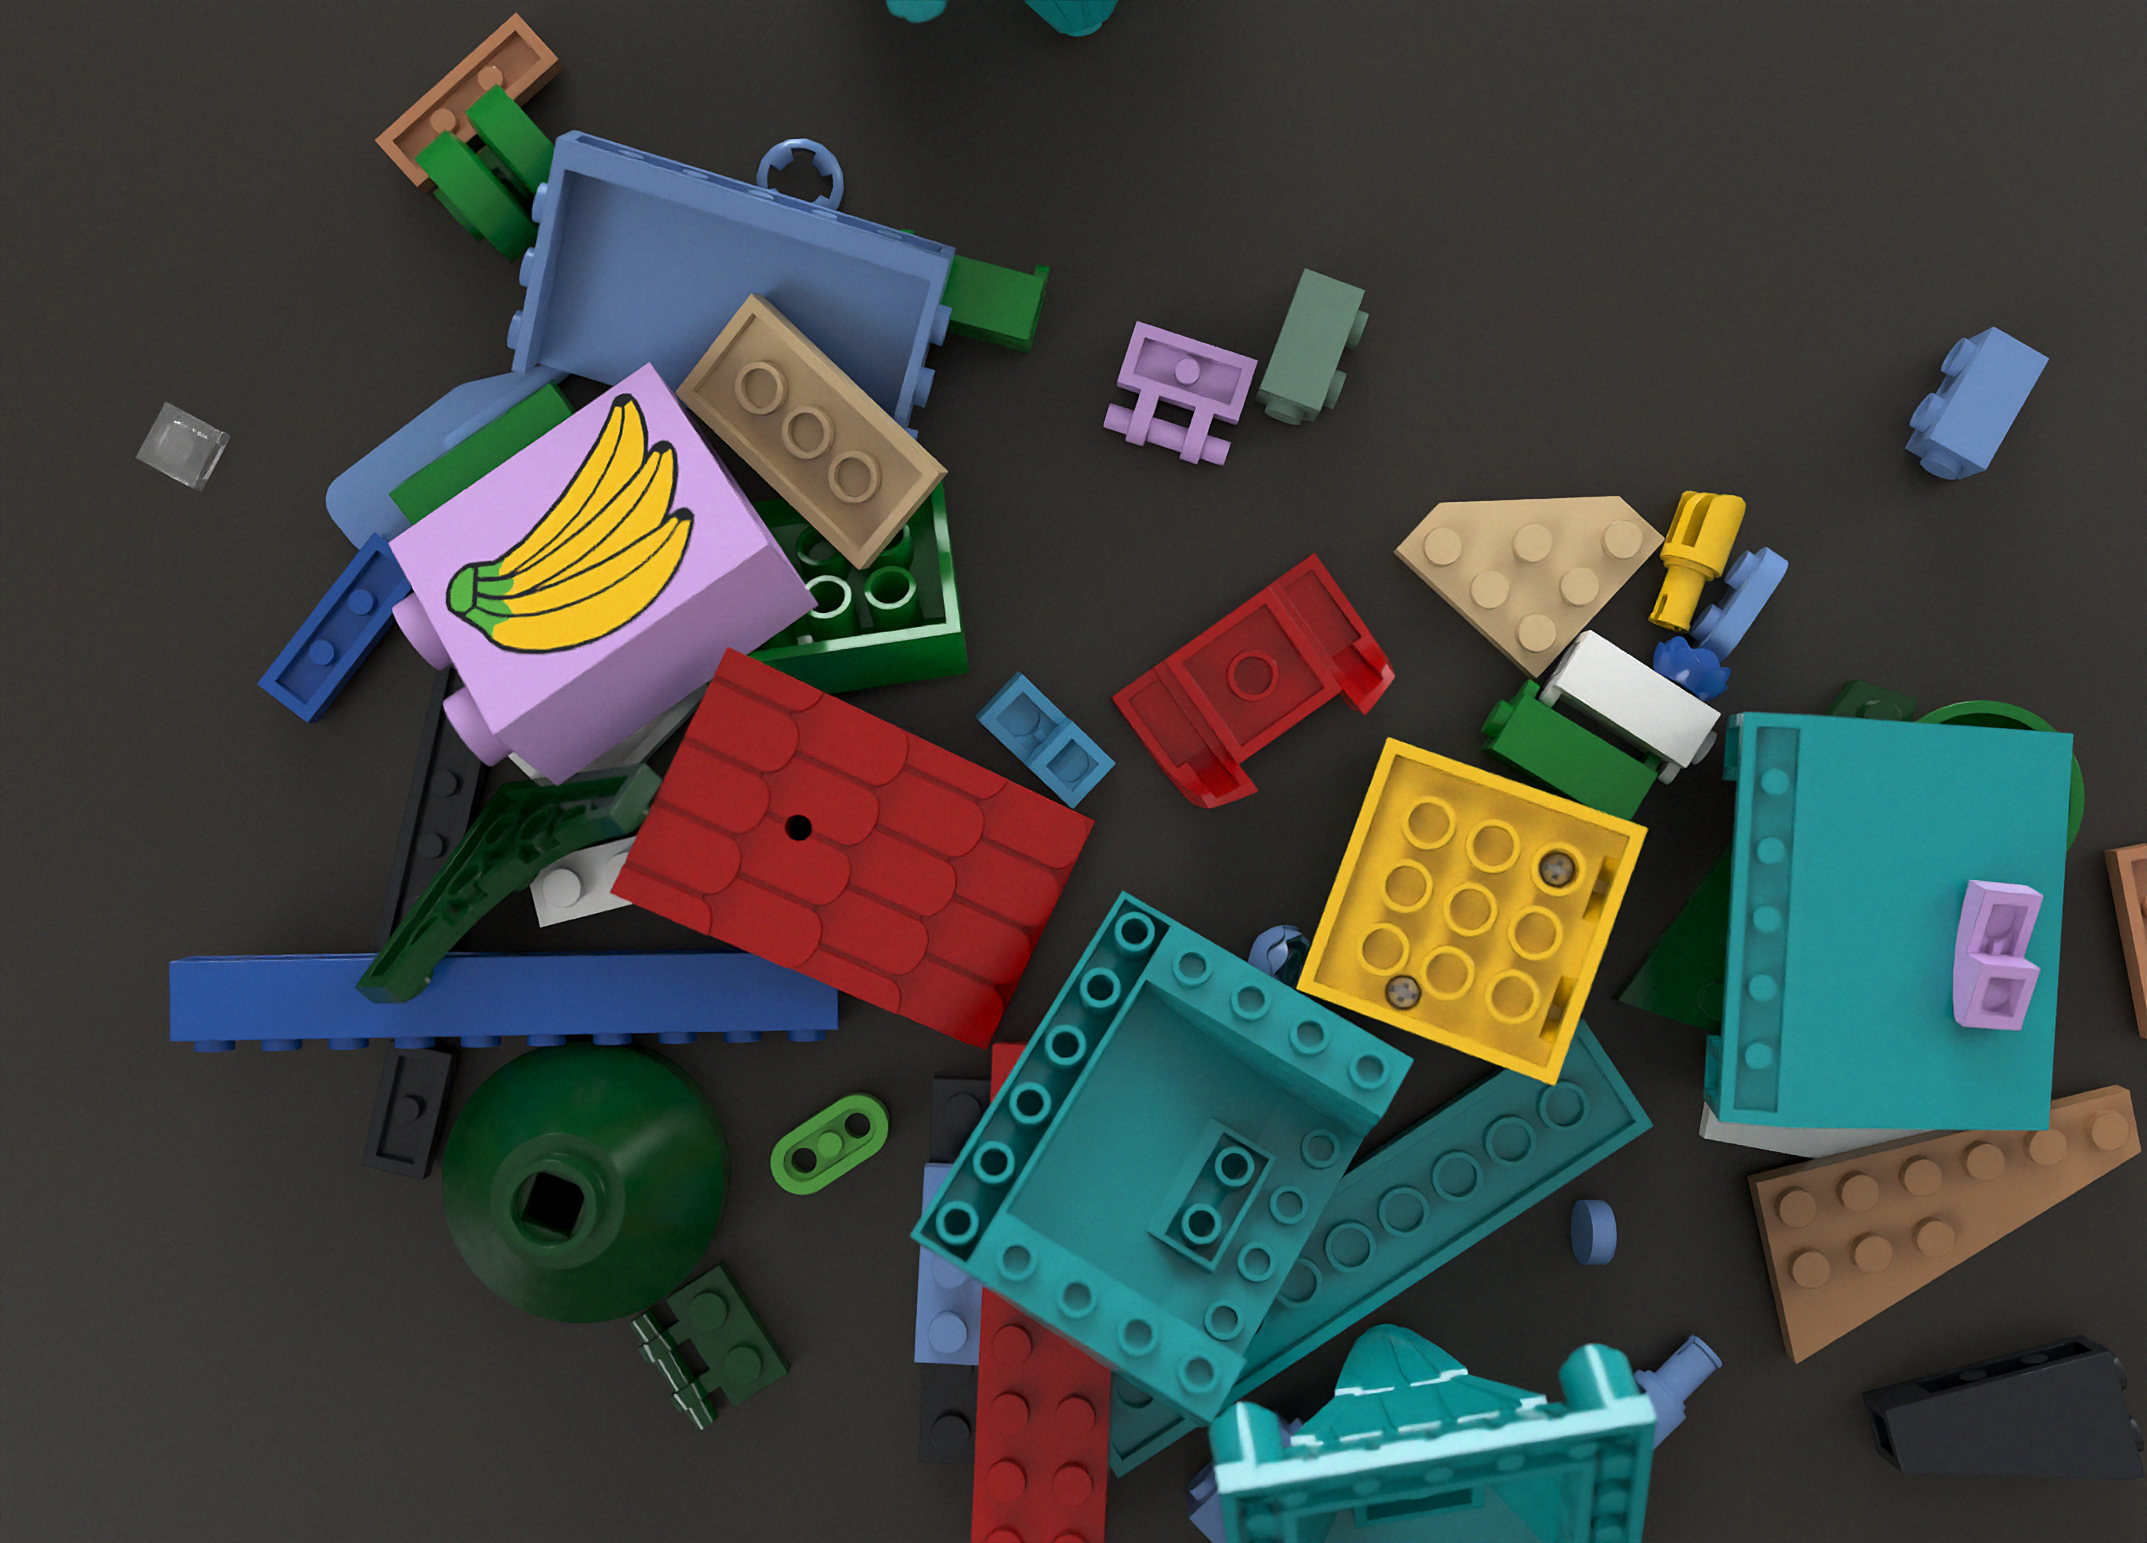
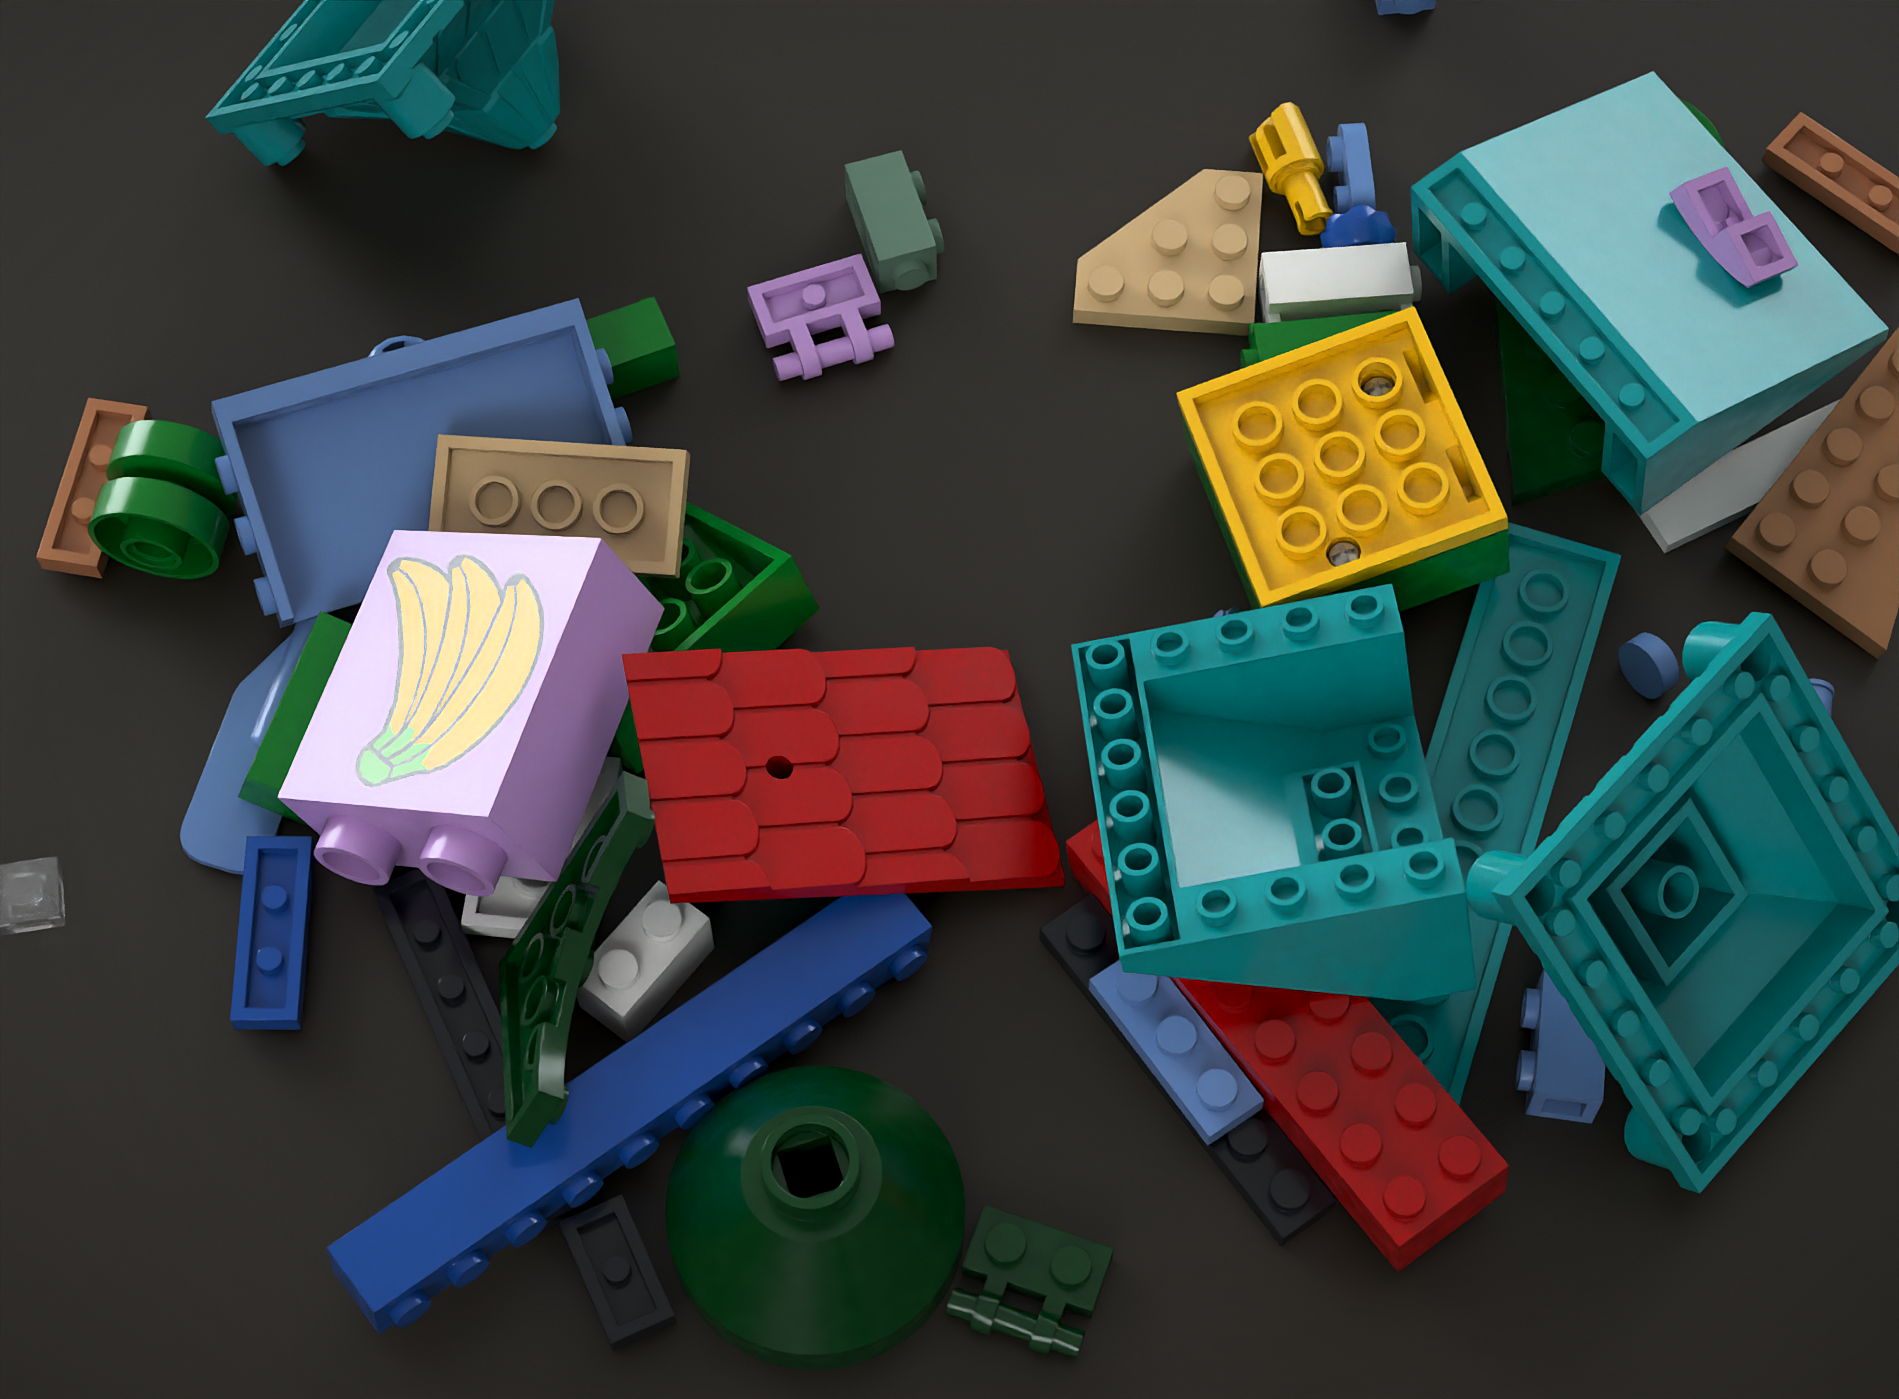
camera: 35 degrees left, 25 degrees down
(832, 1143) = (997, 1041): bright green plate -> none
(1045, 740) = (926, 622): dark azure slope -> none
(1253, 682) = (1041, 473): red piece -> none

